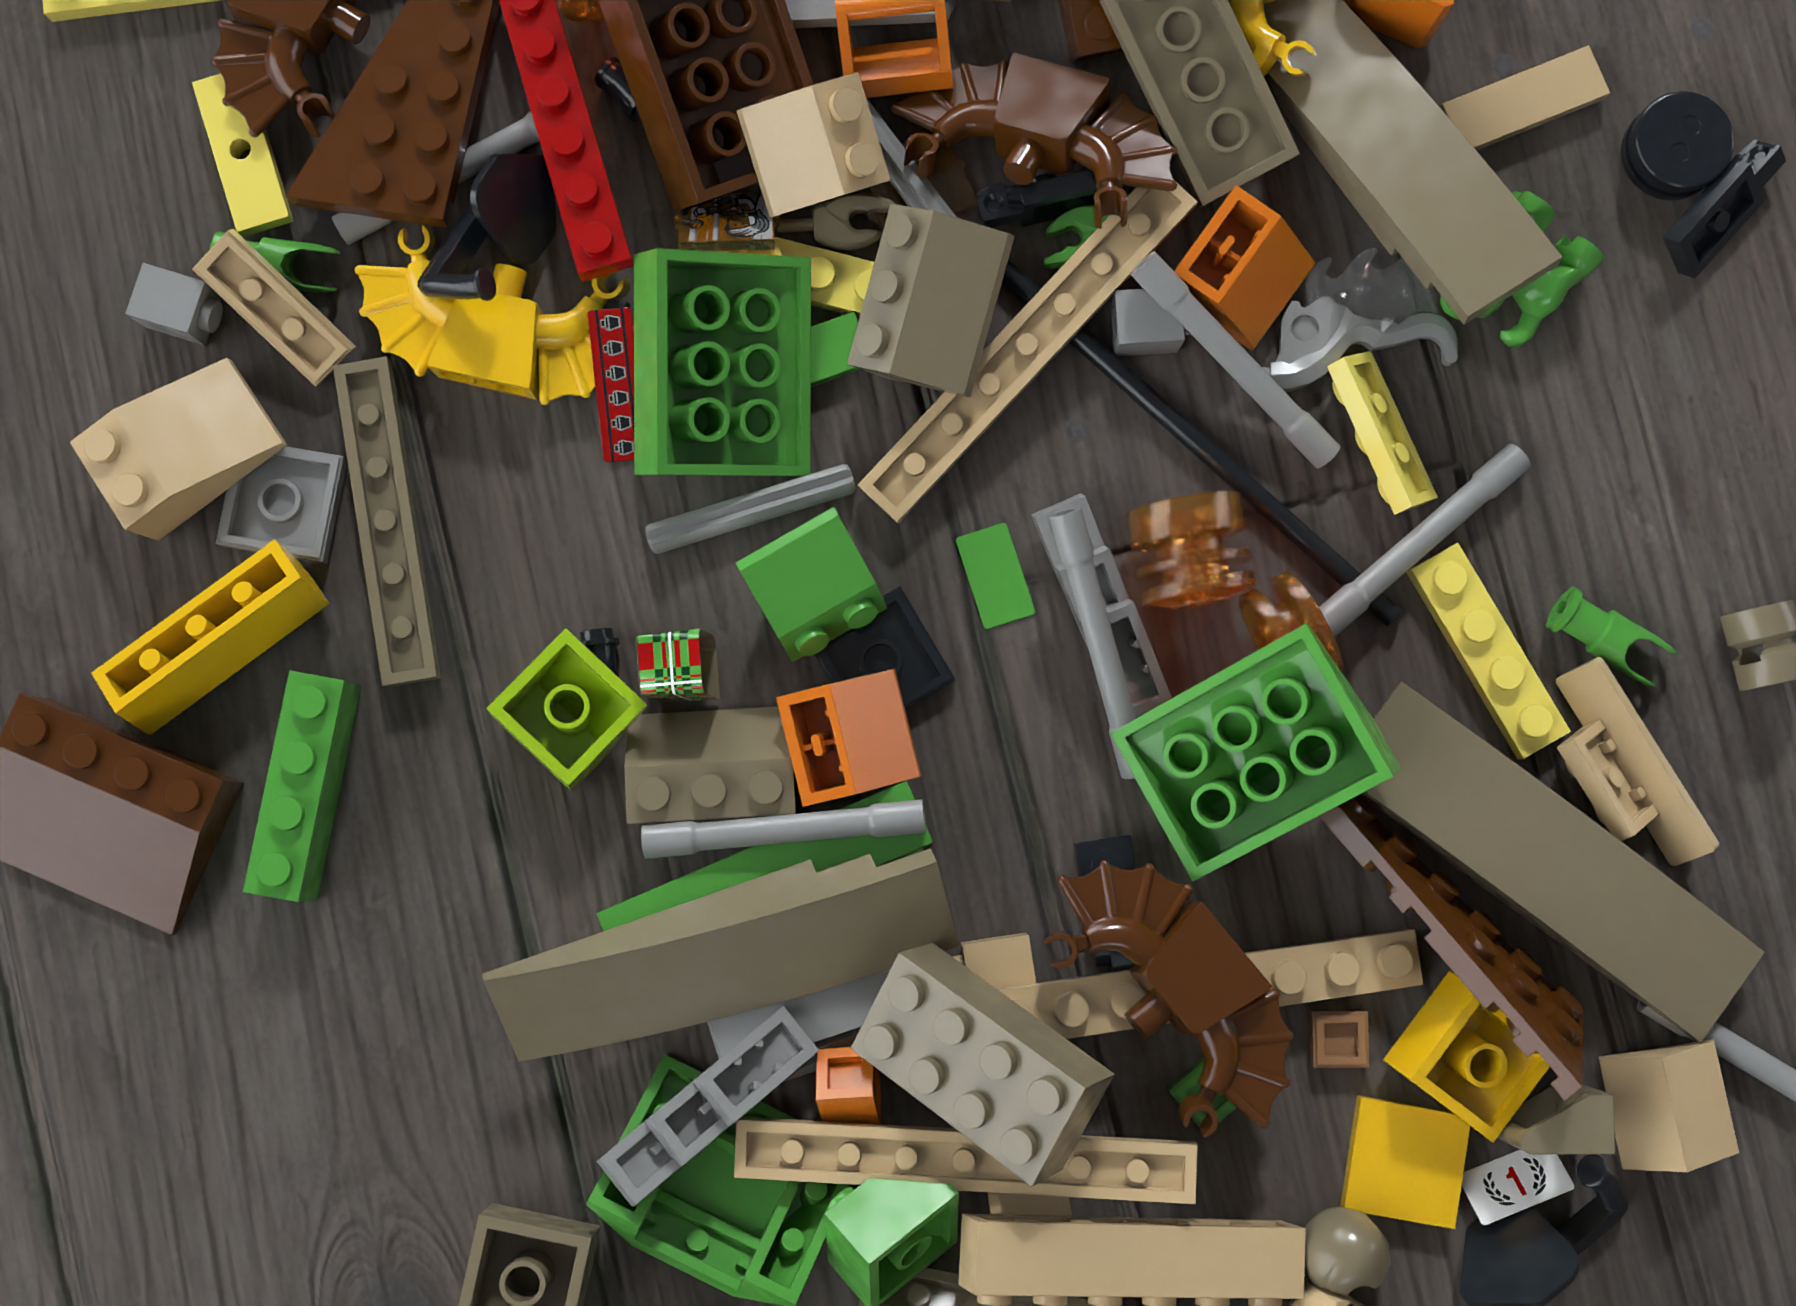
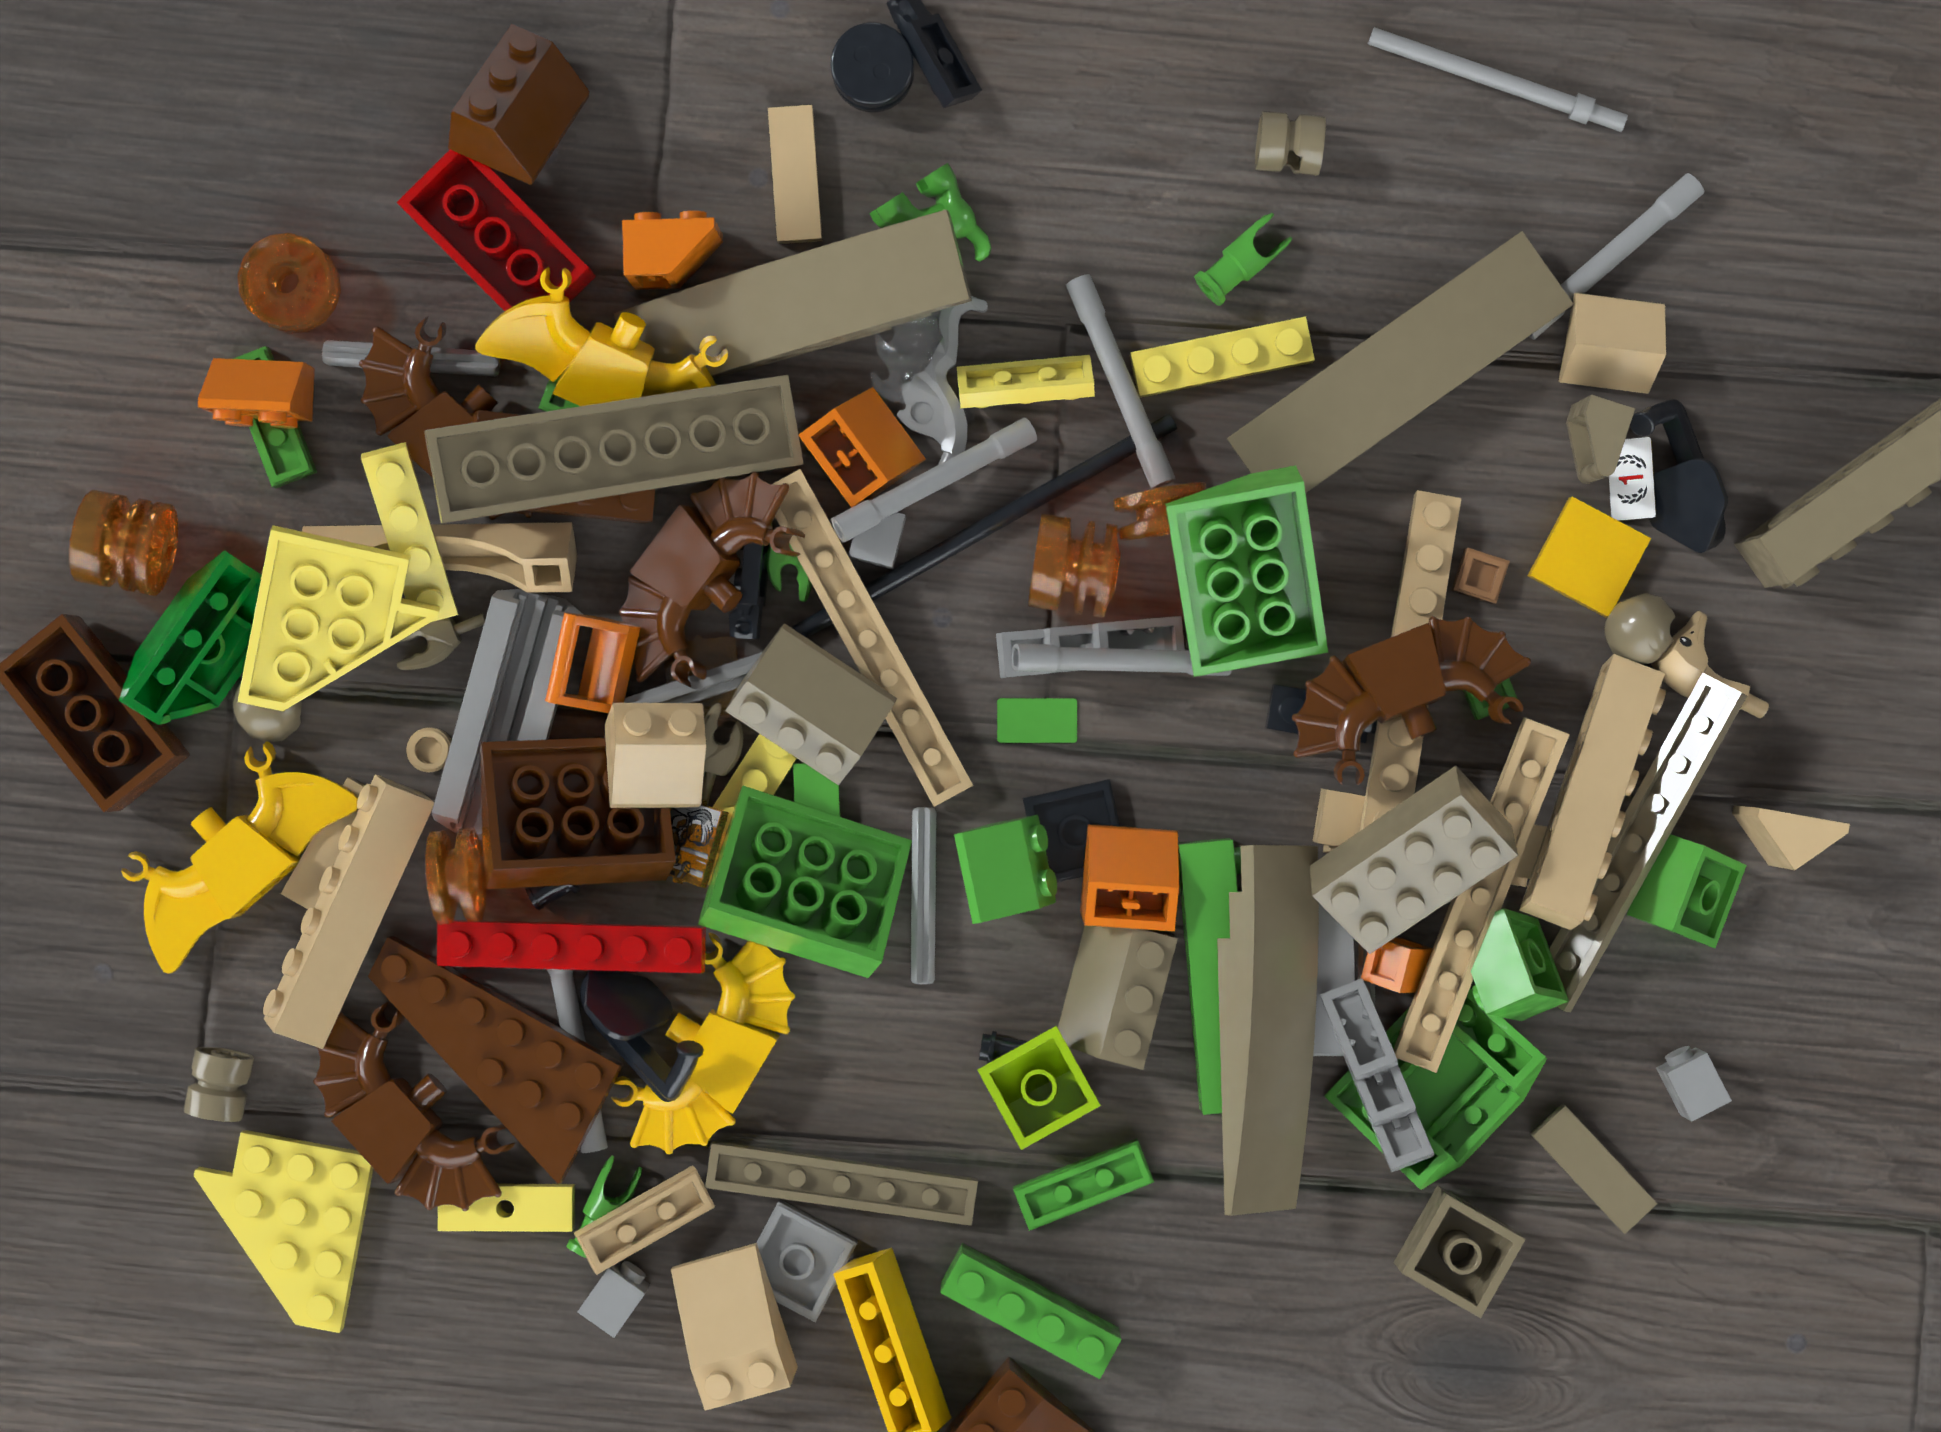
camera: 70 degrees left, 5 degrees up
(472, 803) = (1083, 1184): none -> bright green tile
(613, 368) = (785, 969): red sticker -> none
(678, 665) = (1034, 991): piece -> none
(691, 837) = (1203, 879): light grey piece -> none
(1466, 1058) = (1527, 483): yellow slope -> none
(1469, 942) = (1445, 455): reddish brown wing -> none
(1626, 769) = (1350, 286): tan bracket -> none

